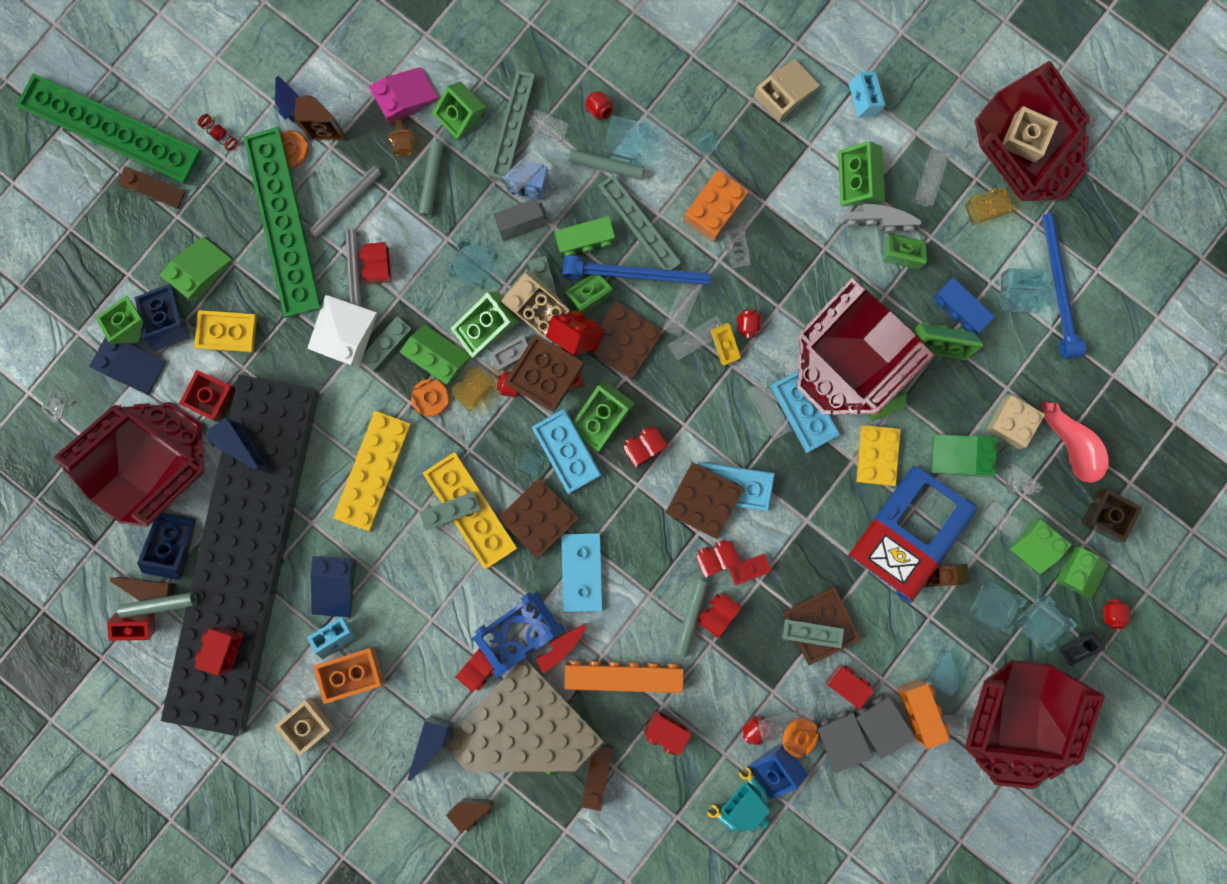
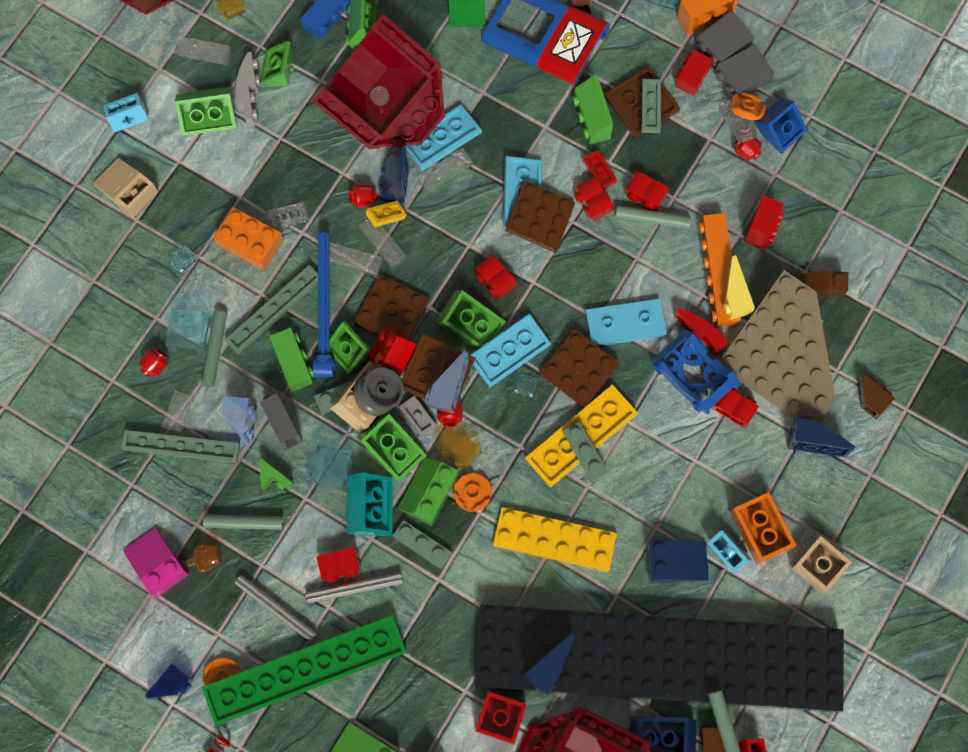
camera: 95 degrees left, 10 degrees down
(218, 650) = (762, 651): red brick -> none
(225, 331) = (428, 714): yellow plate -> none
(317, 120) = (192, 639): reddish brown slope -> none
(342, 331) = (414, 589): white slope -> none
(429, 297) = (369, 505): none -> teal slope
(458, 109) = (168, 502): bright green slope -> none
(473, 205) = (269, 474): none -> bright green slope
(515, 376) = (448, 386): none -> sand blue slope
(519, 316) = (378, 391): none -> dark grey wheel
(588, 688) = (737, 296): none -> light yellow slope
(745, 808) = (820, 147): teal torso -> none
(761, 357) = (395, 177): none -> dark blue slope
(814, 570) = (593, 111): none -> bright green slope
(857, 351) = (379, 95): none -> clear tile
(878, 455) = (475, 70): yellow plate -> none

